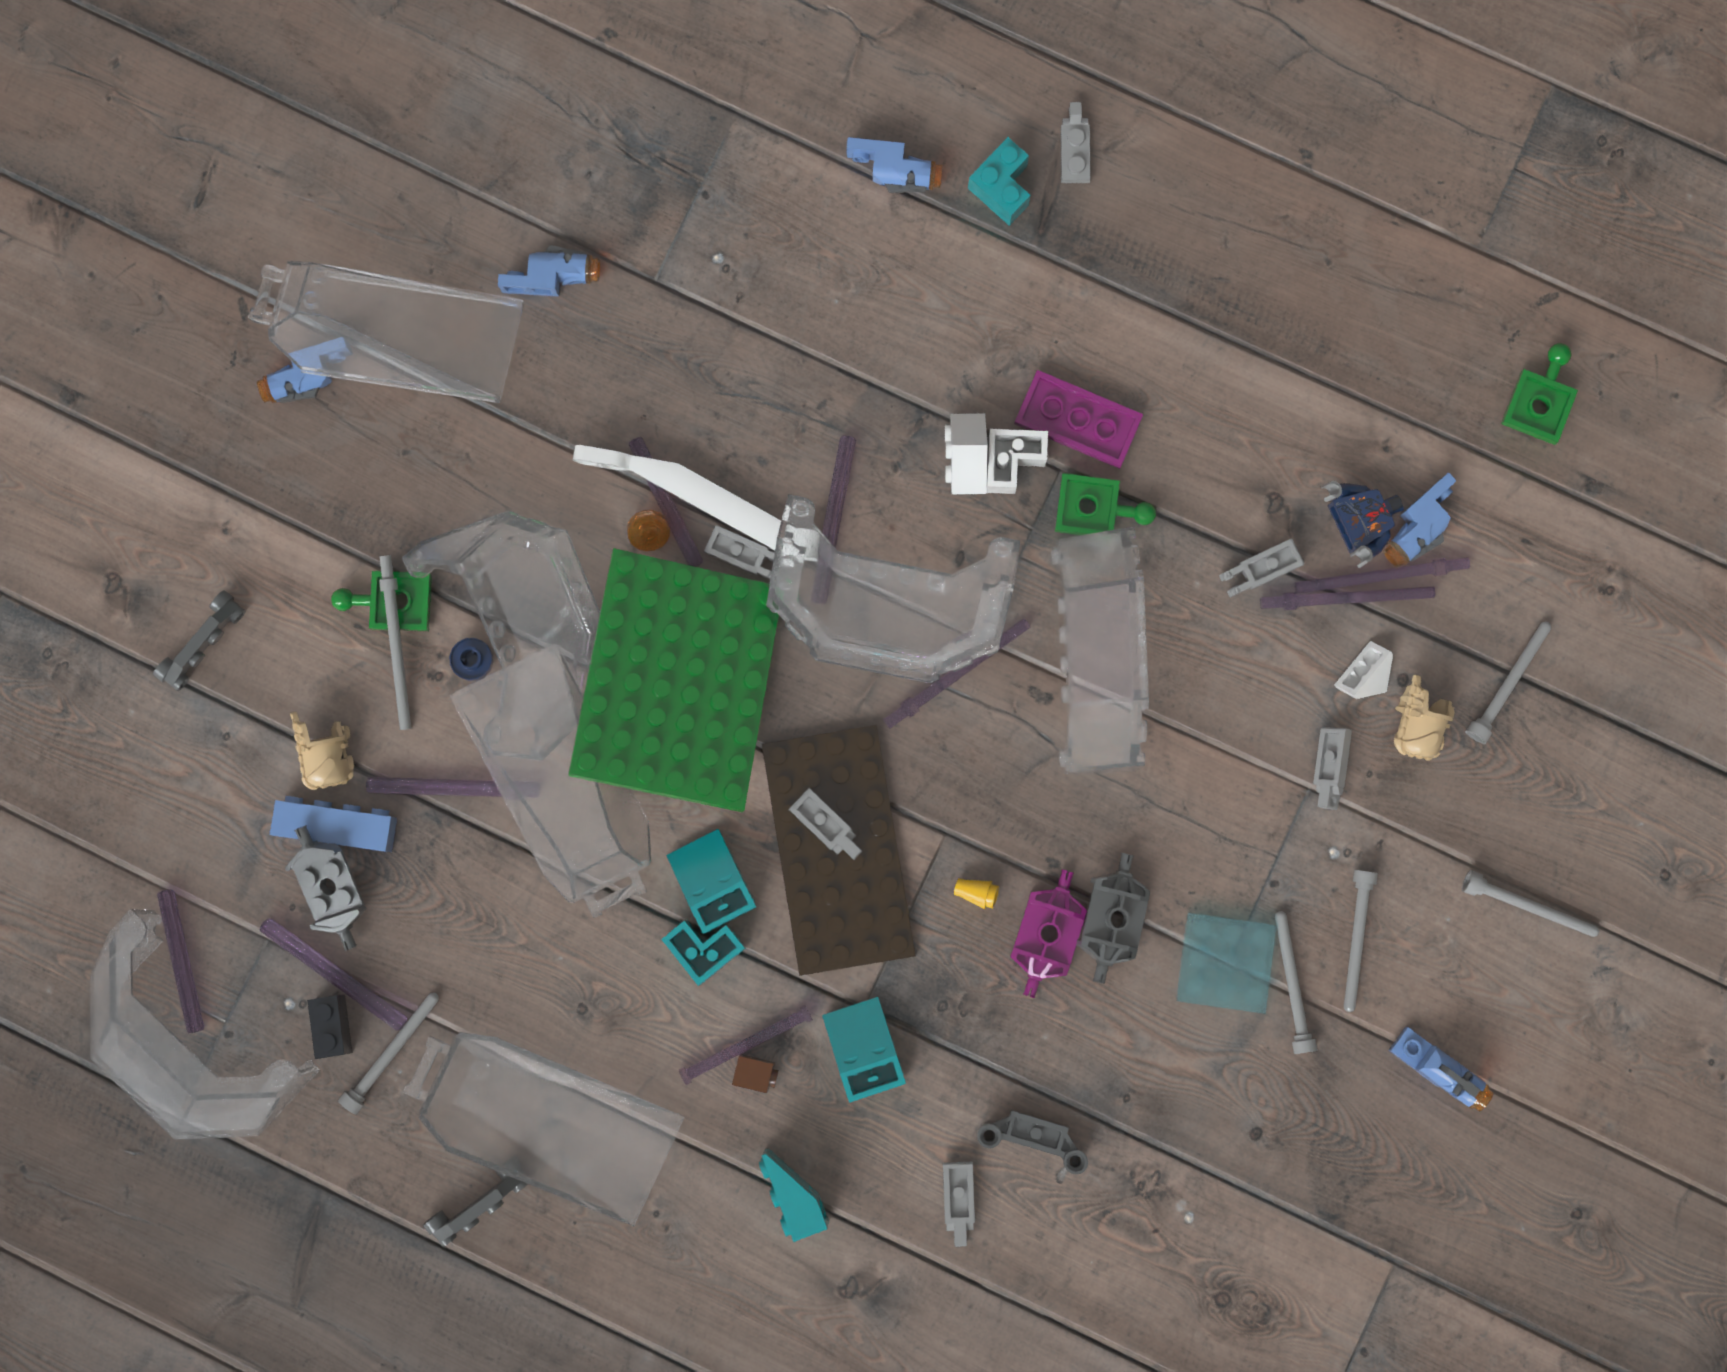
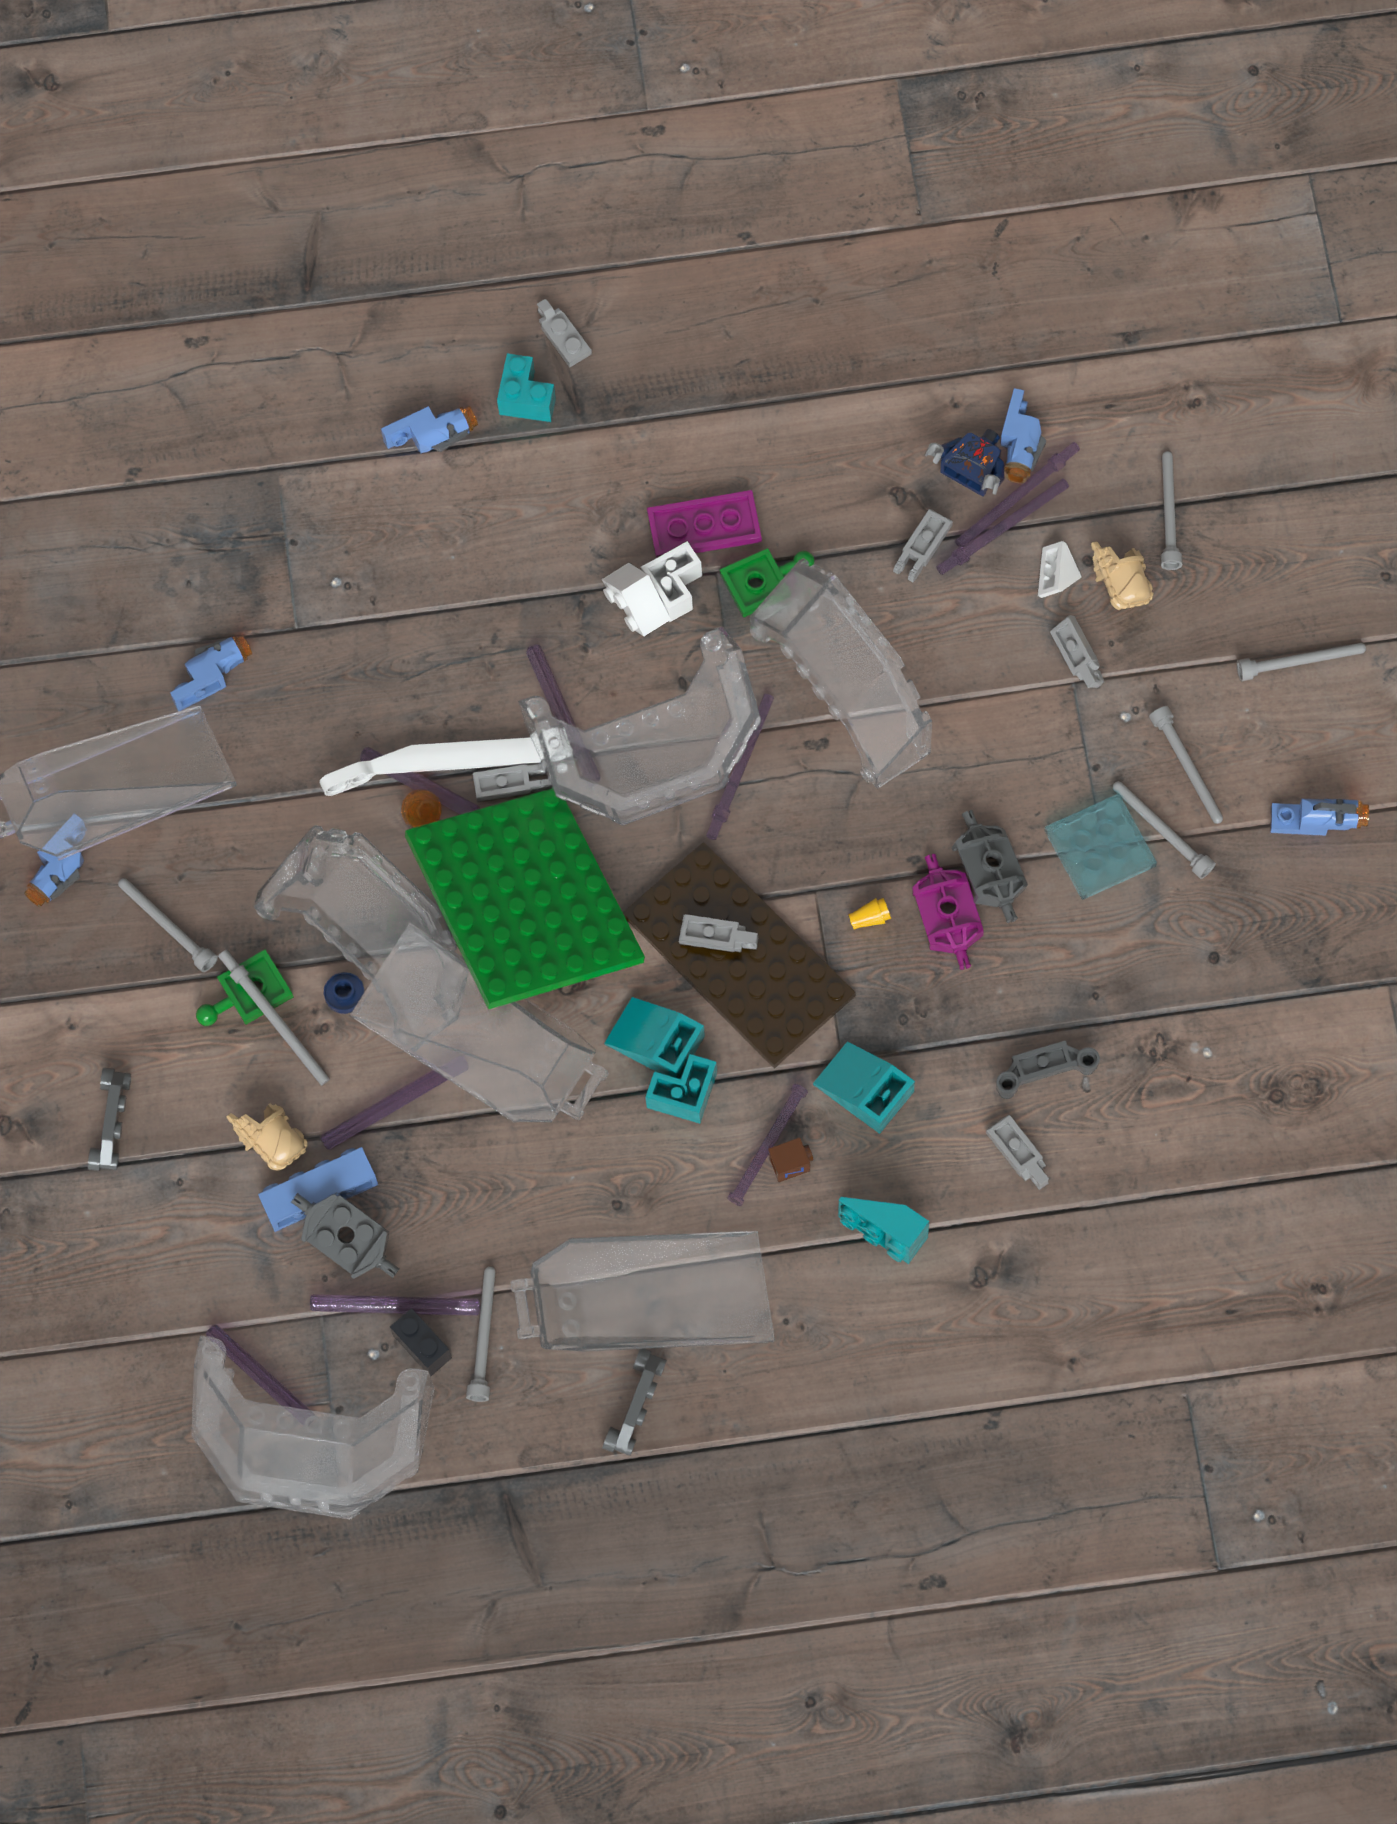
camera: 35 degrees left, 15 degrees down
(373, 543) = (203, 958): none -> light grey piece
(1555, 395) = (1054, 289): green plate -> none

